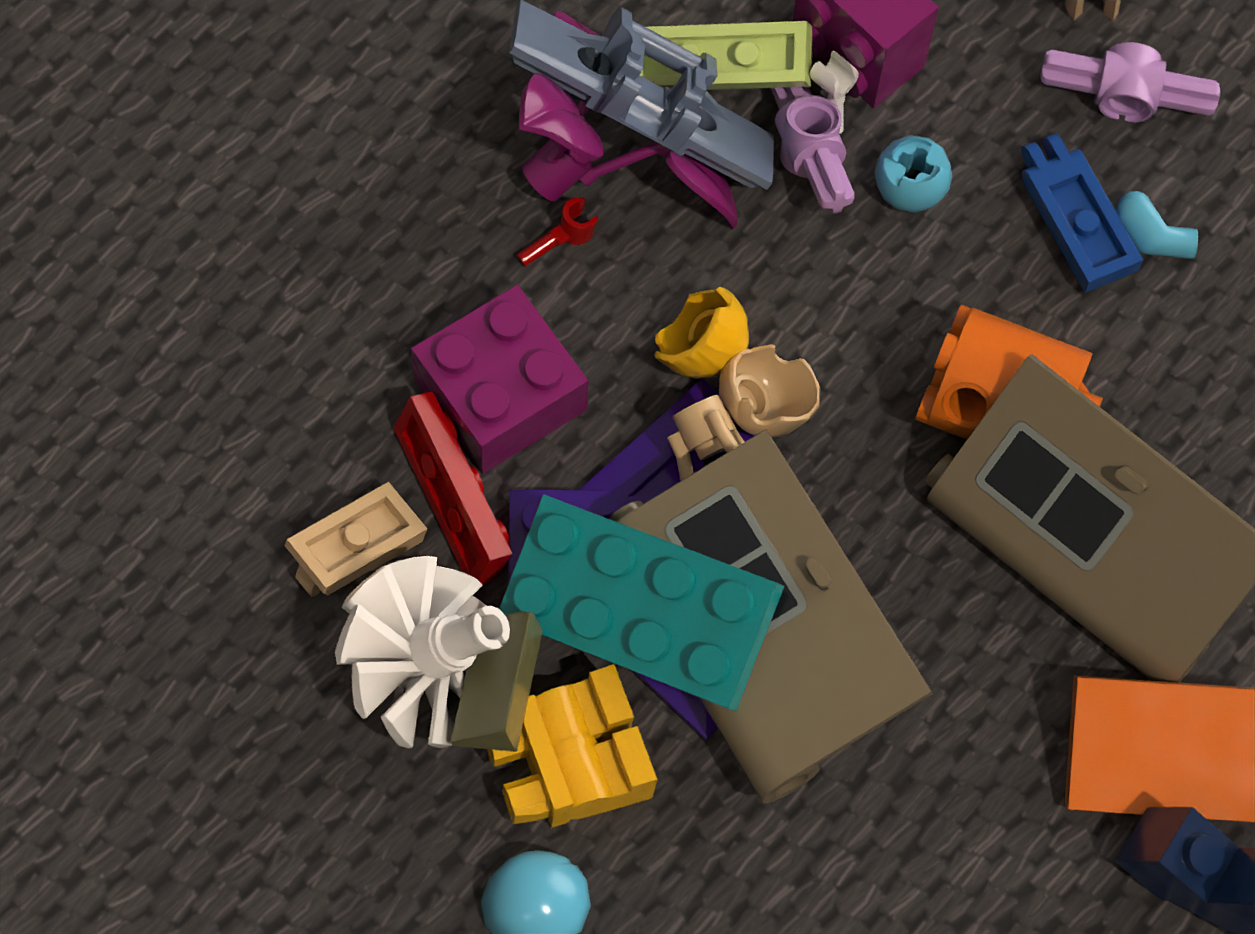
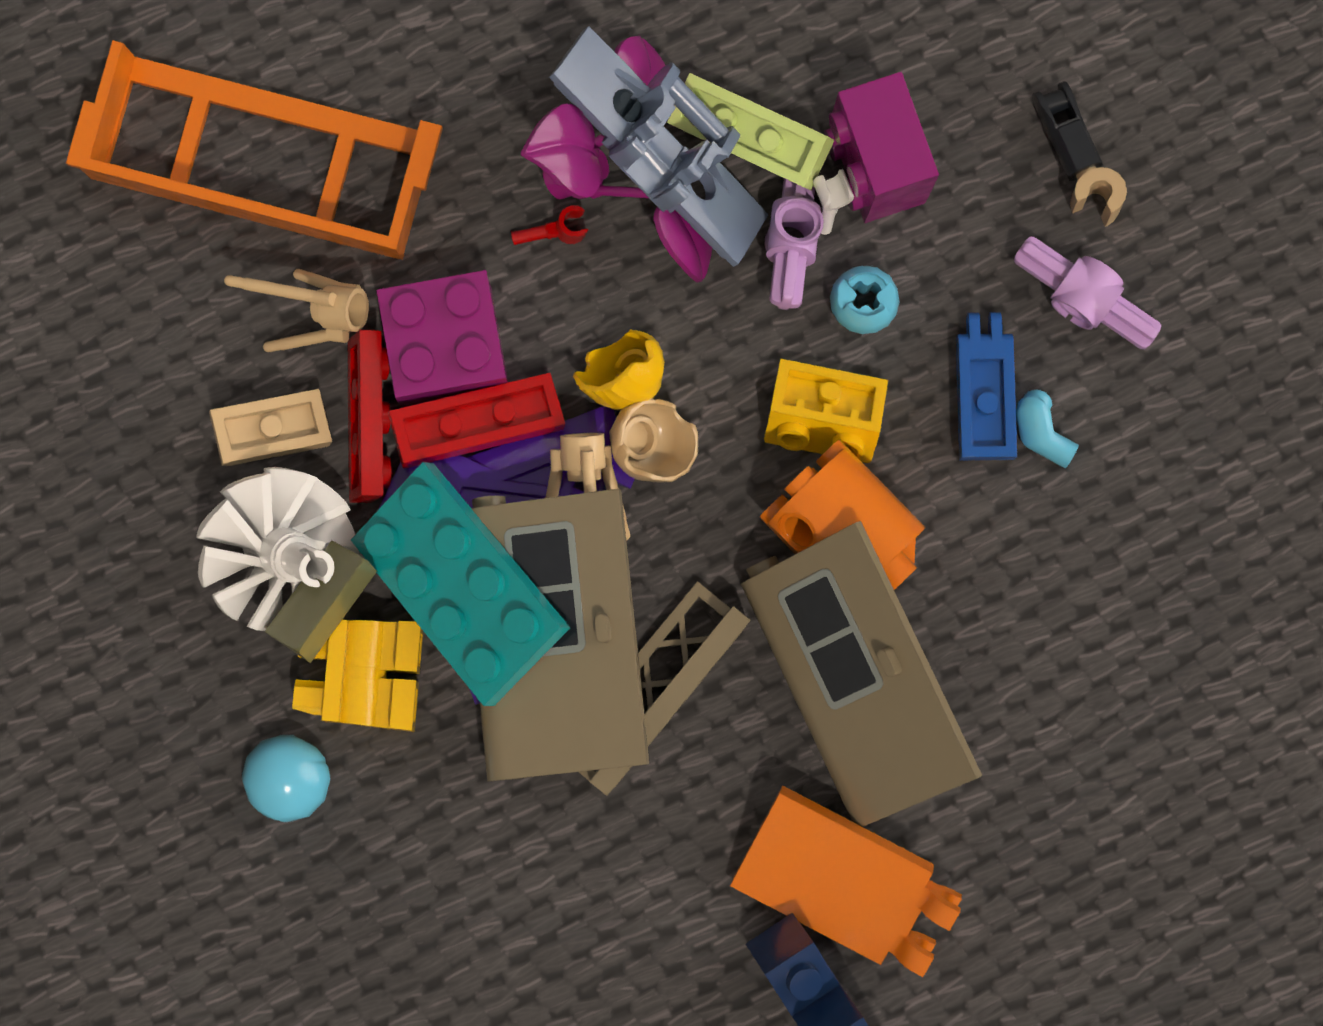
camera: 25 degrees right, 15 degrees up
(222, 333) = (101, 123): none -> orange piece
(371, 386) = (336, 307): none -> tan plant
(573, 443) = (476, 420): none -> red plate
(918, 622) = (688, 678): none -> dark tan fence
(920, 293) = (821, 405): none -> yellow bracket

